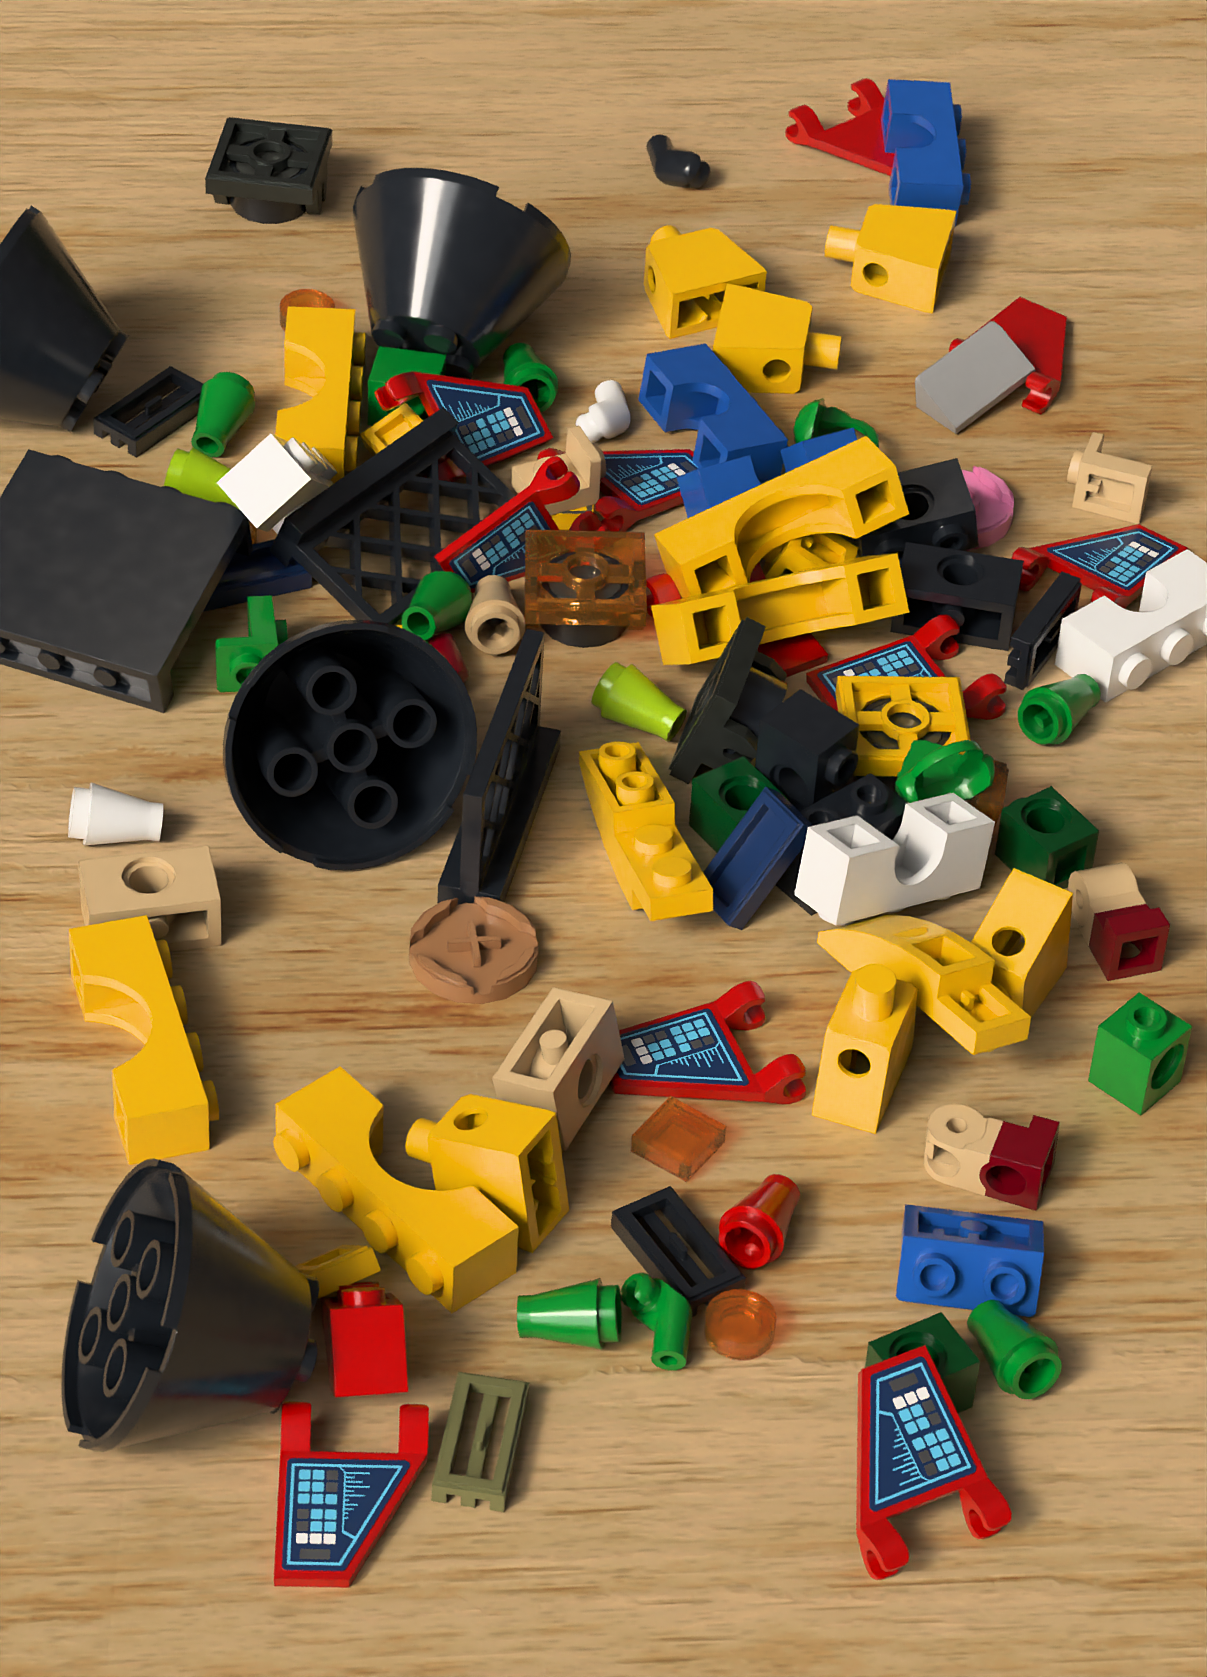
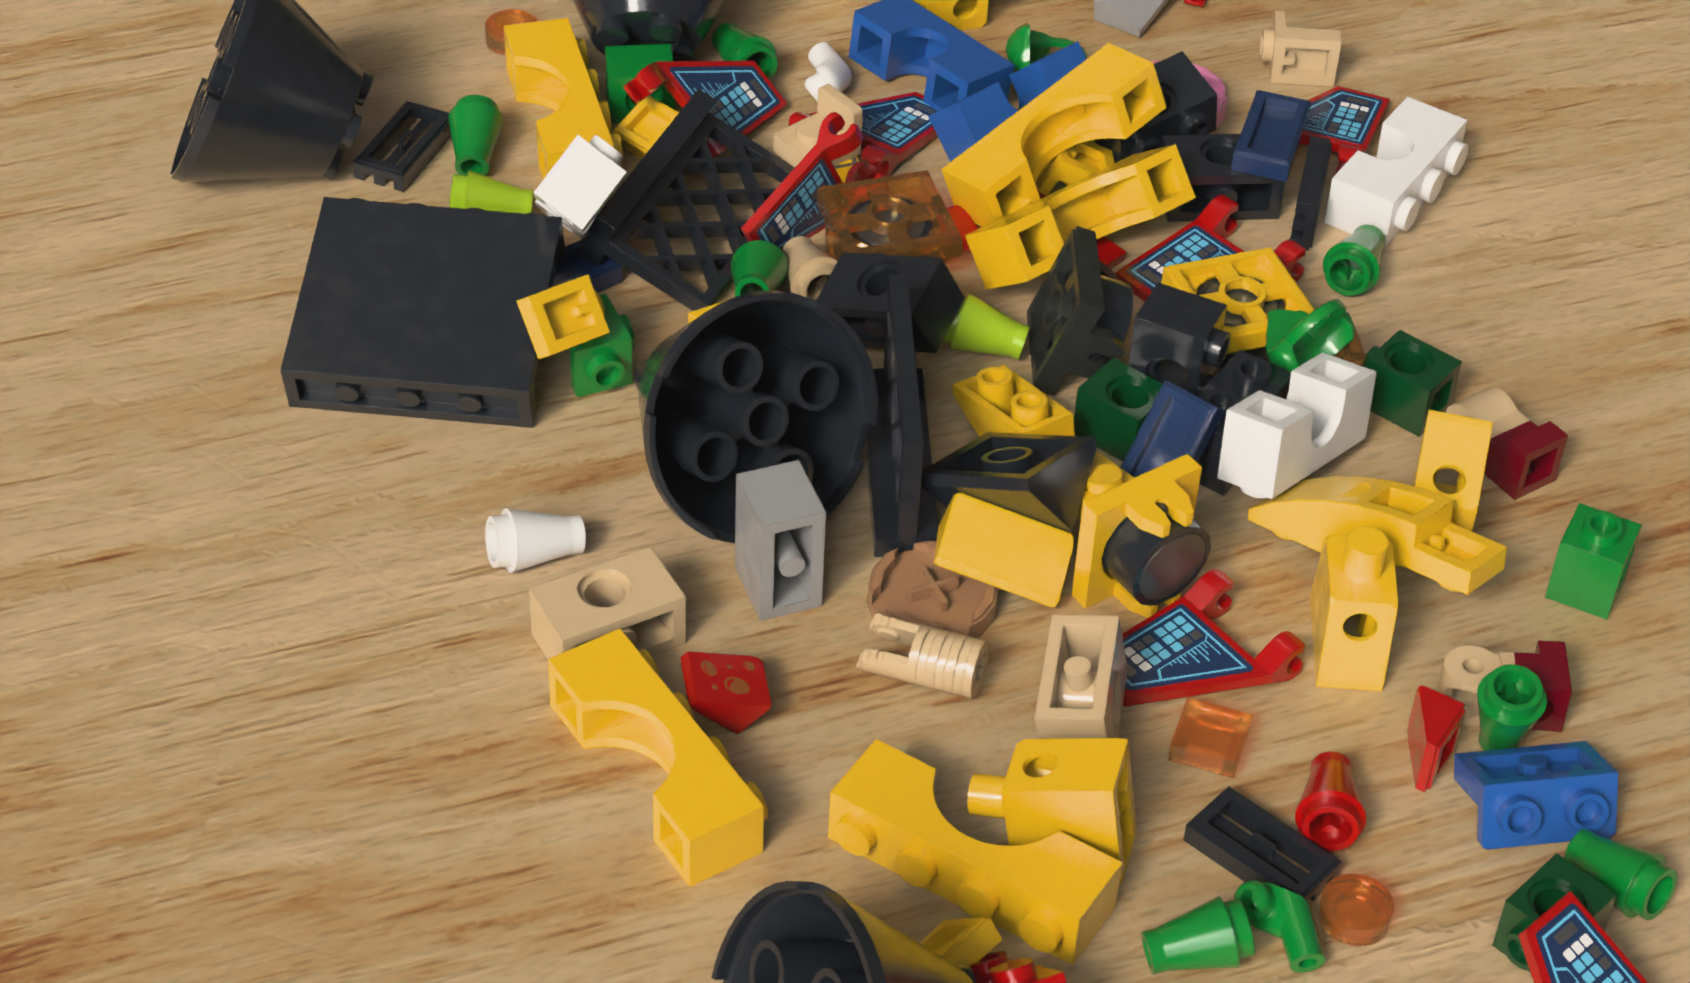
camera: 15 degrees left, 0 degrees up
(211, 609) = (563, 316): none -> yellow bracket
(230, 992) = (726, 688): none -> red slope
(332, 865) = (779, 539): none -> light grey brick
(439, 1006) = (936, 656): none -> tan hinge
(552, 919) = (1003, 549): none -> yellow slope
(574, 660) = (860, 290): none -> black brick
(585, 854) = (1018, 472): none -> black slope
(686, 934) = (1142, 539): none -> piece
(892, 1183) = (1432, 734): none -> red slope
(969, 1168) = (1508, 706): none -> green cone
(1015, 563) = (1271, 135): none -> dark blue tile

